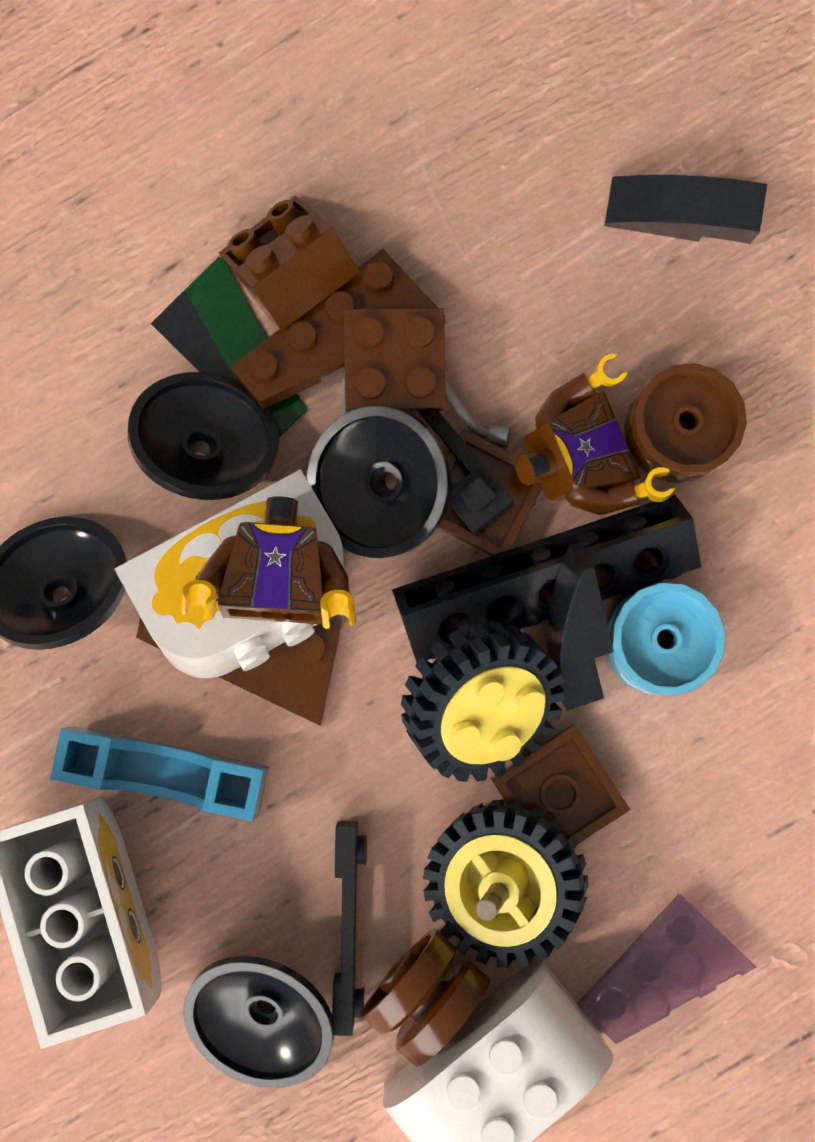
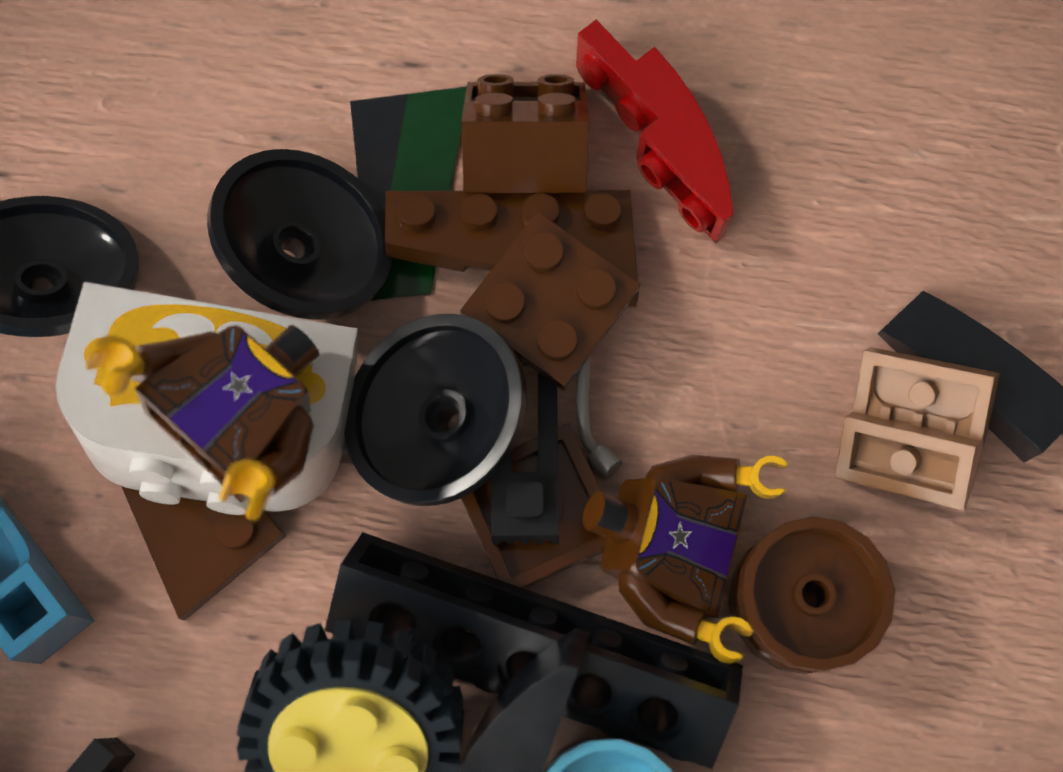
camera: 40 degrees right, 10 degrees down
(392, 194) = (675, 137): none -> red slope
(672, 270) = (917, 427): none -> medium nougat slope

